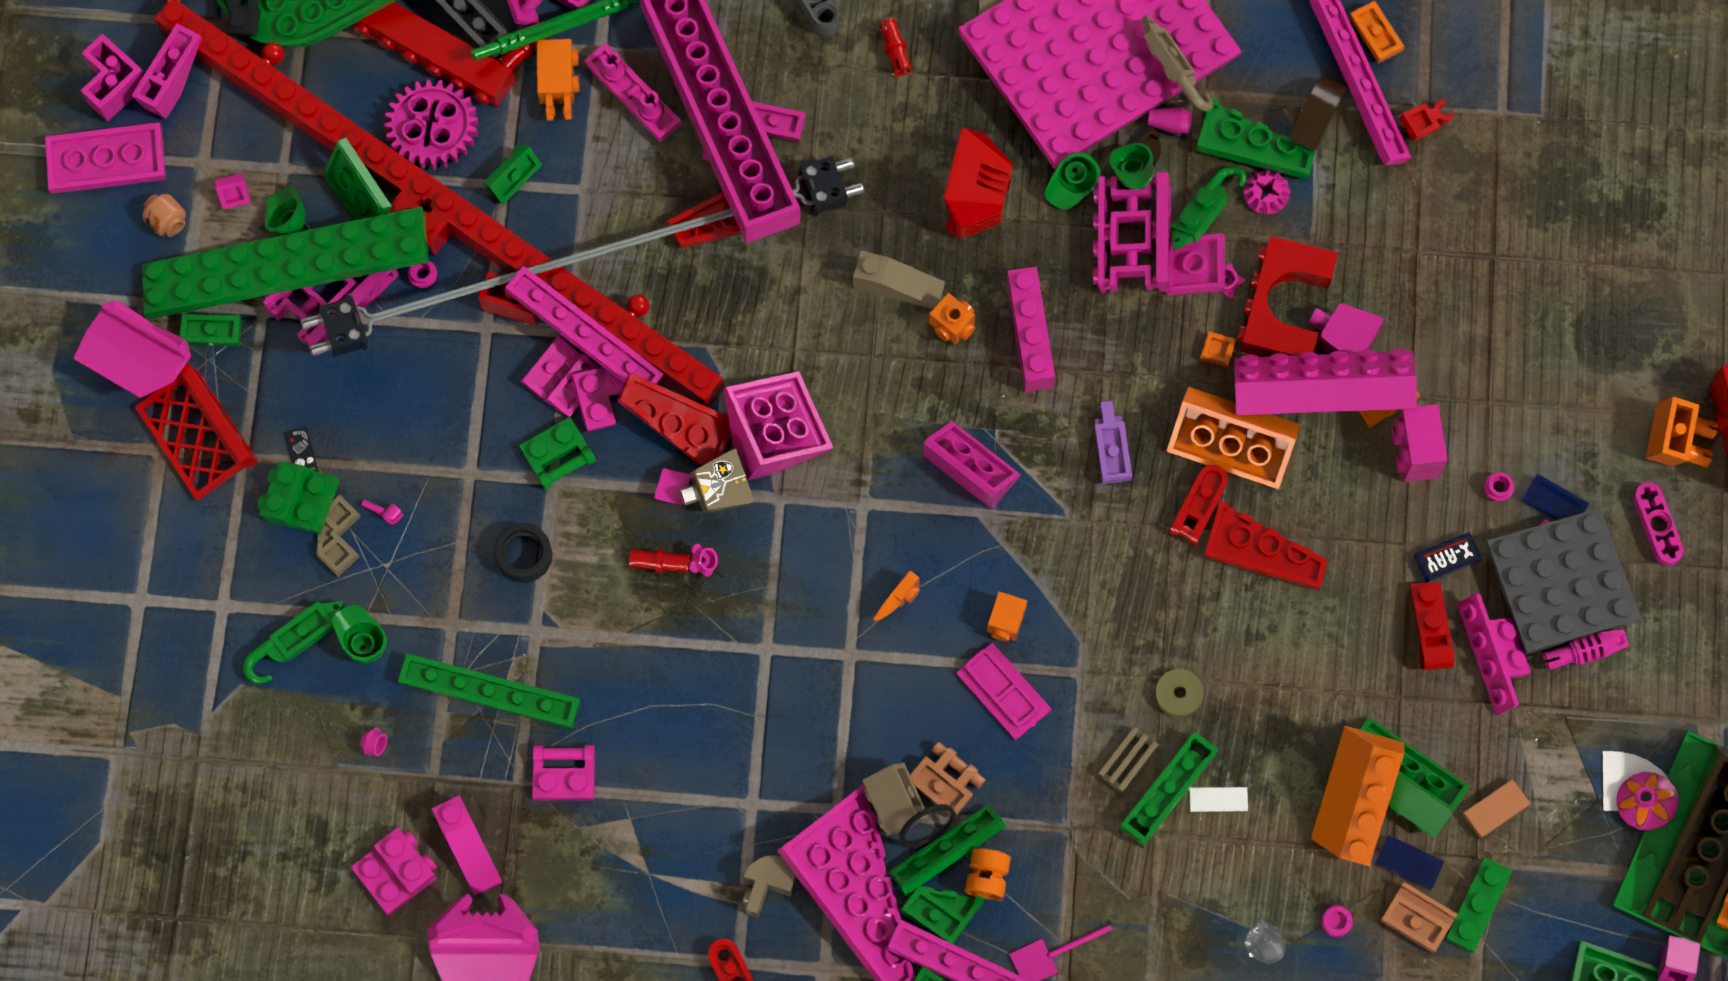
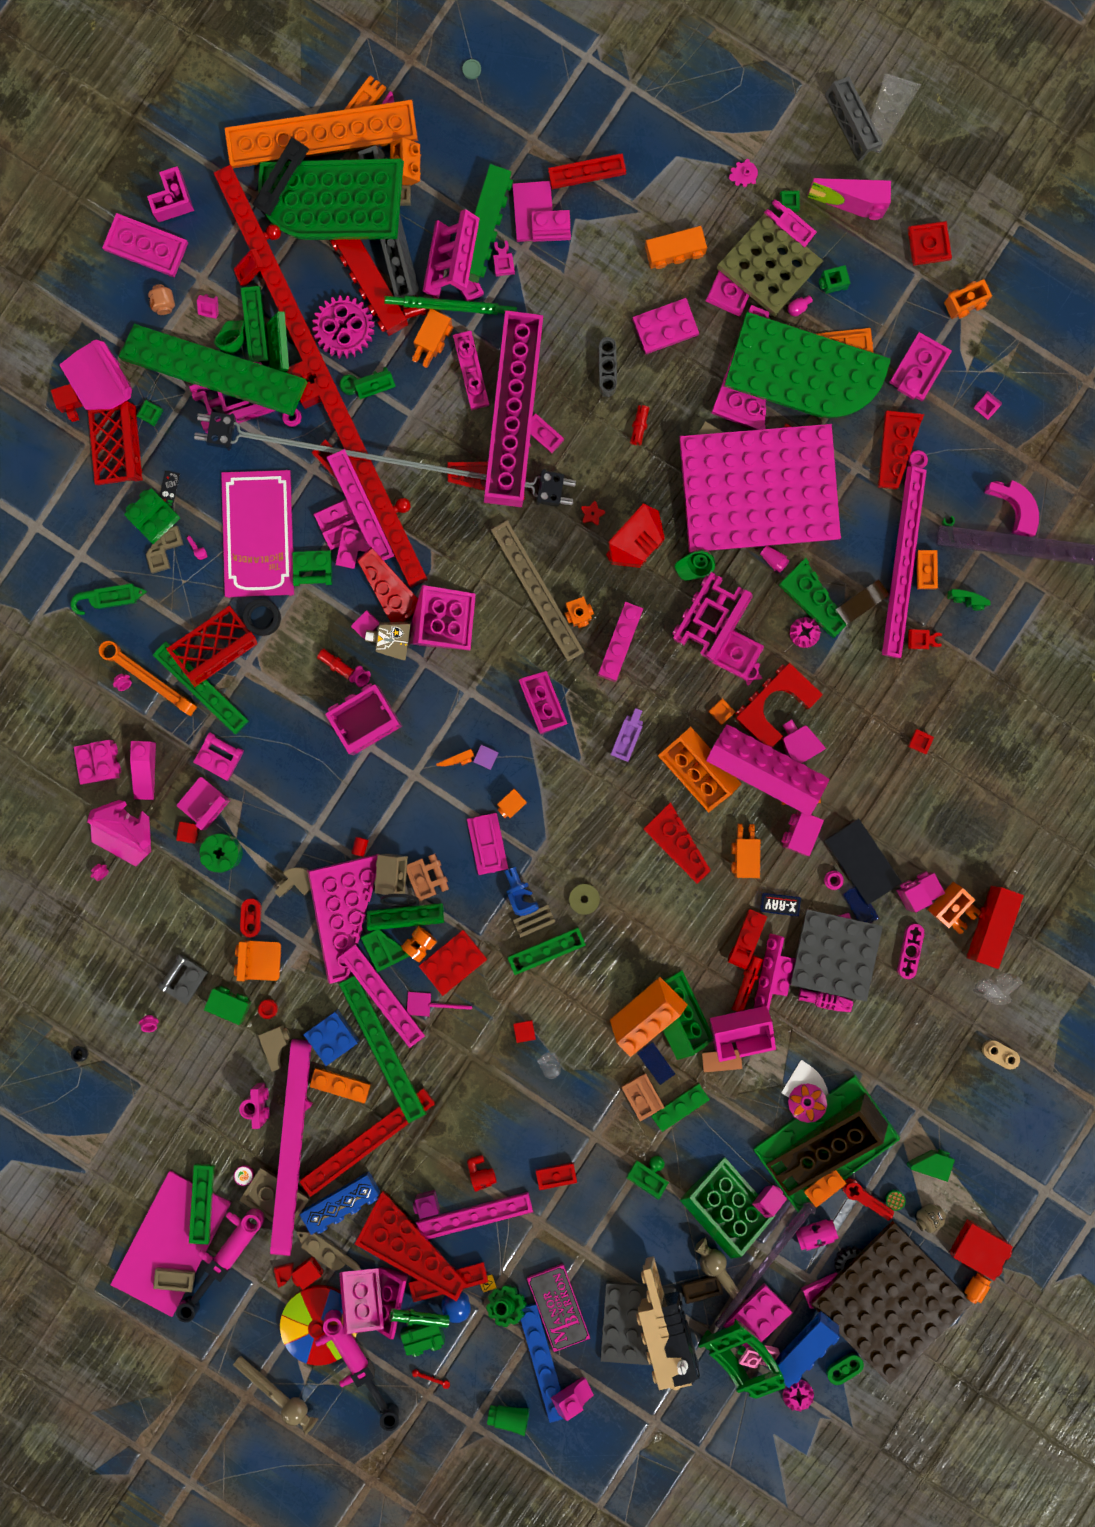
camera: 30 degrees right, 15 degrees up
(102, 406) = (67, 401): none -> red brick
(168, 72) = (205, 211): dark pink slope -> none
(211, 330) = (153, 386): green plate -> none
(223, 368) = (149, 413): none -> green tile
(263, 113) = (248, 267): none -> red tile
(308, 180) = (255, 324): none -> green plate
(359, 629) = (143, 610): green cap -> none
(457, 449) = (257, 533): none -> dark pink piece
(473, 724) = (178, 700): none -> orange piece
(477, 194) = (347, 384): none -> green tile
(499, 632) = (223, 656): none -> red fence
(576, 900) = (187, 832): none -> red tile
(577, 846) = (203, 803): none -> dark pink bracket
(642, 881) = (212, 860): none -> green brick
(741, 608) = (363, 719): none -> dark pink container
(829, 788) = (359, 846): none -> red hinge
(881, 323) = (537, 591): none -> dark tan plate
(896, 280) = (560, 571): dark tan slope -> none
(897, 195) = (592, 518): none -> red plate
(935, 576) = (486, 757): none -> medium lavender tile
(1048, 878) = (453, 962): none -> red plate
(1082, 731) = (516, 894): none -> blue piece
(1132, 165) = (735, 576): green cap -> none
(1151, 139) = (753, 567): dark brown tile -> none
(1174, 62) = (795, 526): dark tan plate -> none
(1200, 503) = (659, 797): red plate -> none
(1202, 918) = (524, 1031): none -> red tile
(1203, 208) = (762, 623): green plate -> none
(1218, 799) = (572, 969): white sticker -> none
(1336, 921) = (597, 1073): dark pink tile -> none
(1363, 514) = (746, 854): none -> orange hinge
(1459, 37) = (972, 599): none -> green slope
(1470, 698) = (750, 976): none -> red pin
(1502, 248) = (920, 741): none -> red plate
(1502, 746) = (748, 1029): none -> dark pink piece
(1522, 439) = (862, 861): none -> black slope
(1620, 437) = (920, 892): none -> dark pink brick

